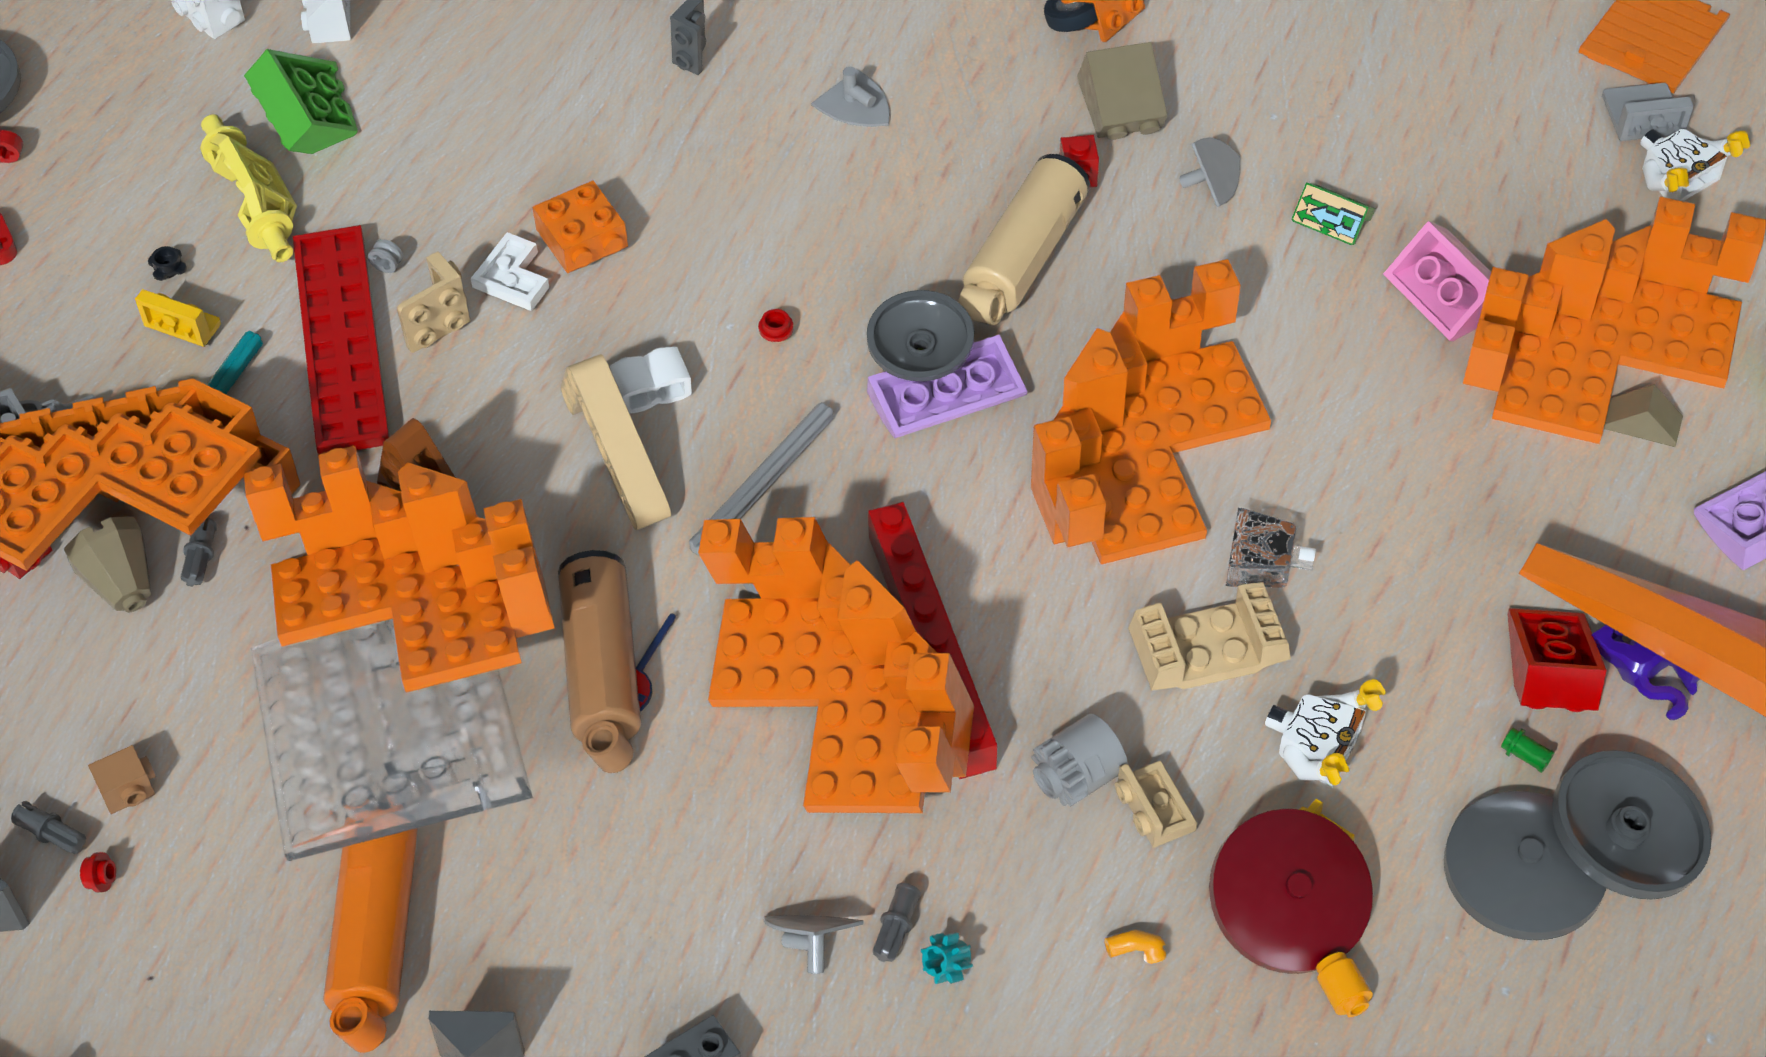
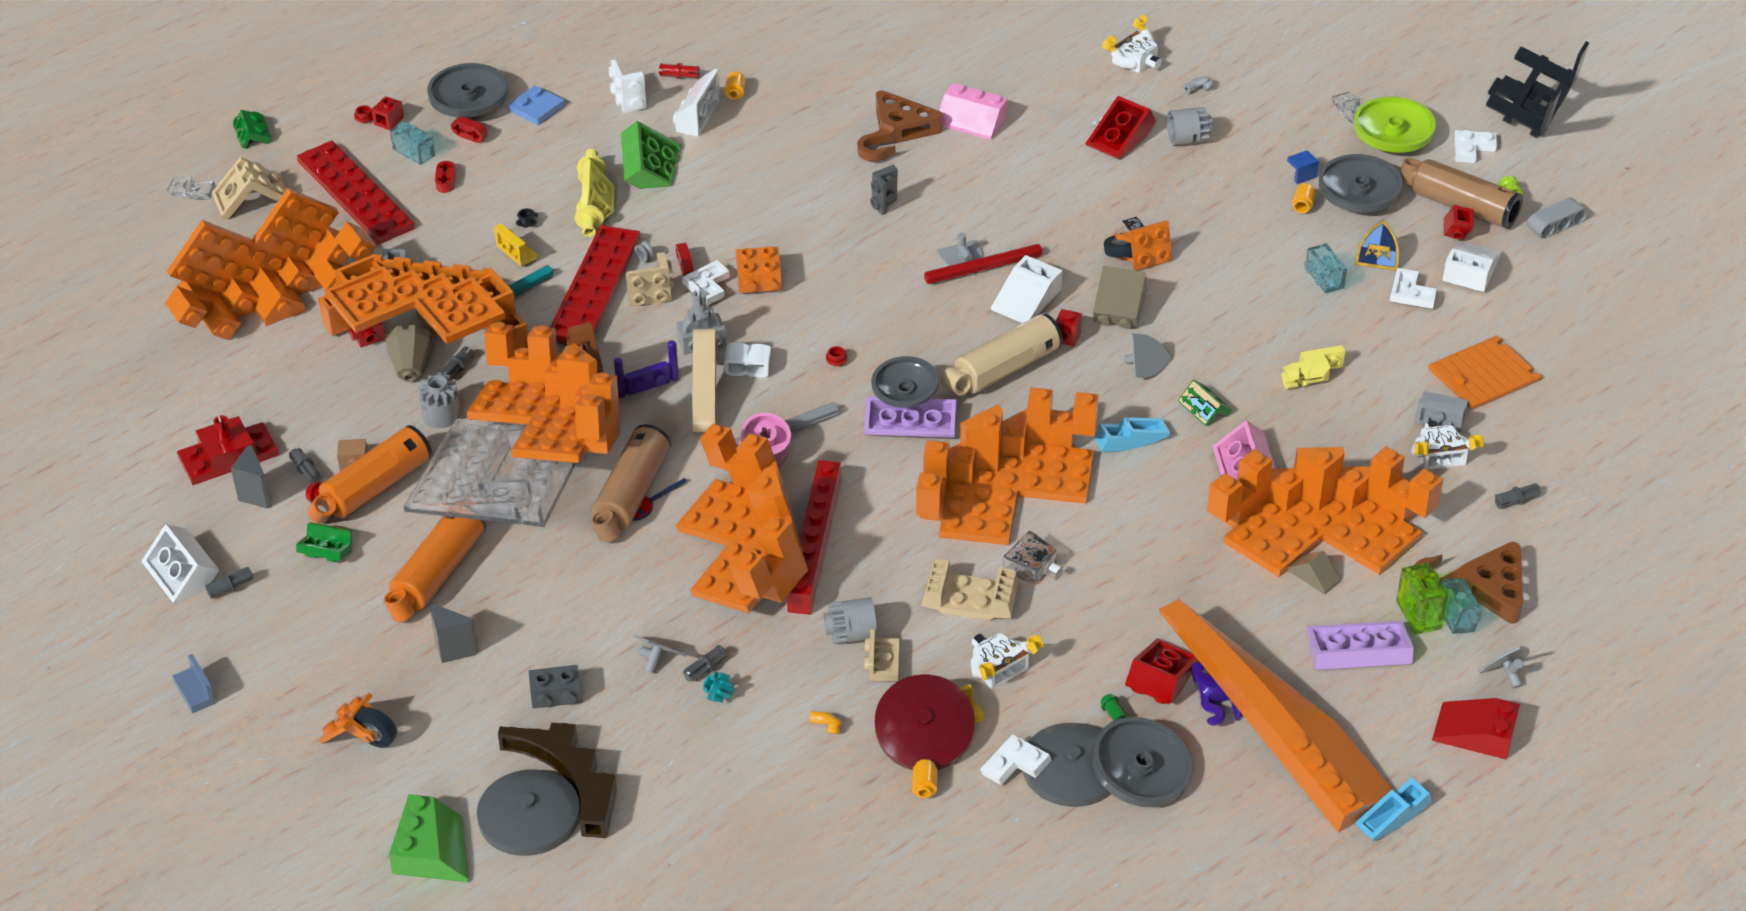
camera: 25 degrees right, 10 degrees down
(71, 70) = (536, 105): none -> medium blue plate
(165, 957) = (325, 542): none -> green bracket
(175, 806) = (371, 474): none -> orange piece
(215, 631) = (439, 401): none -> light grey gear
(454, 247) = (684, 258): none -> red beam
(517, 465) = (647, 377): none -> dark purple plate
(556, 346) = (700, 319): none -> light grey brick
(764, 495) = (770, 427): none -> bright pink wheel
(893, 104) = (982, 263): none -> red axle
(988, 124) = (1028, 289): none -> white slope
(1271, 295) = (1130, 433): none -> medium azure slope
(1440, 106) = (1313, 366): none -> light yellow plate
(1451, 885) = (1012, 755): none -> white plate

